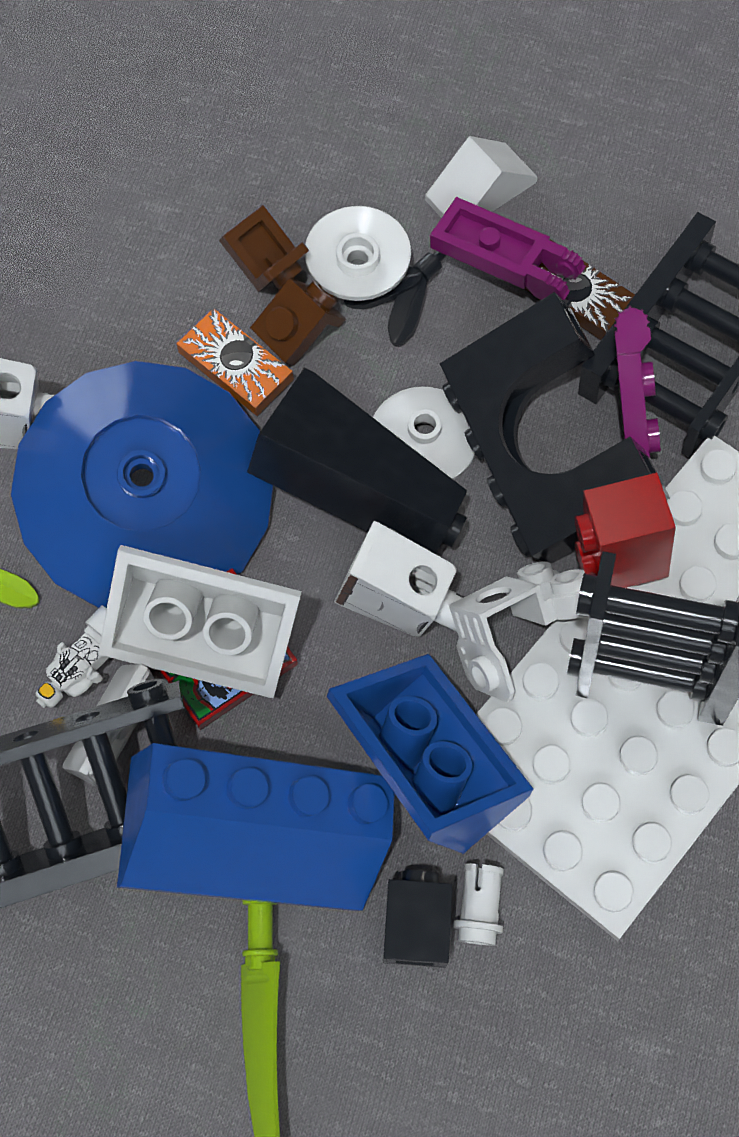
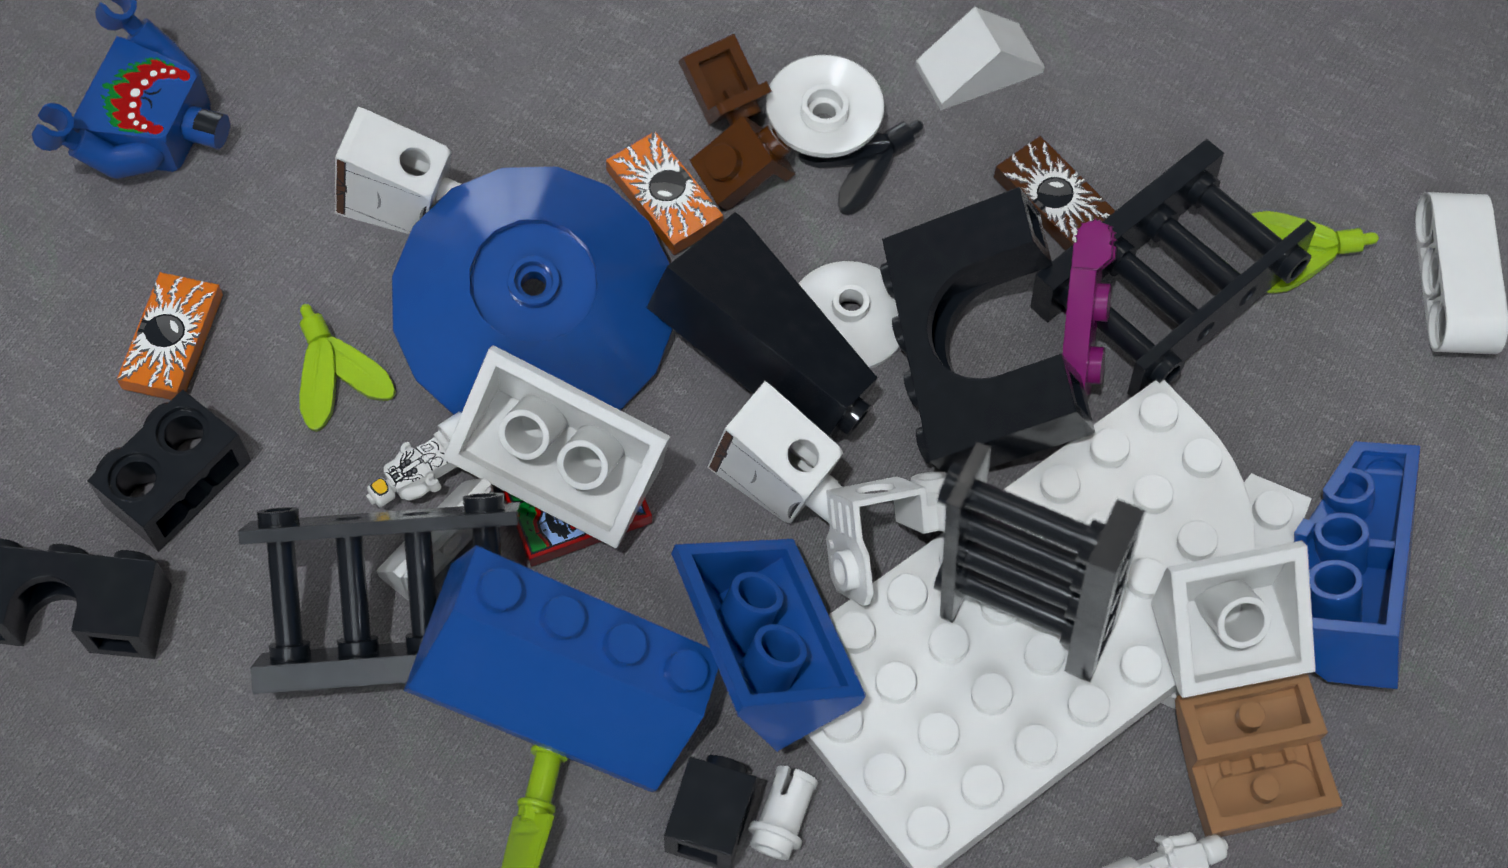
camera: 10 degrees right, 5 degrees down
(505, 249) = (985, 134): magenta hinge -> none
(630, 522) = (1033, 446): red brick -> none

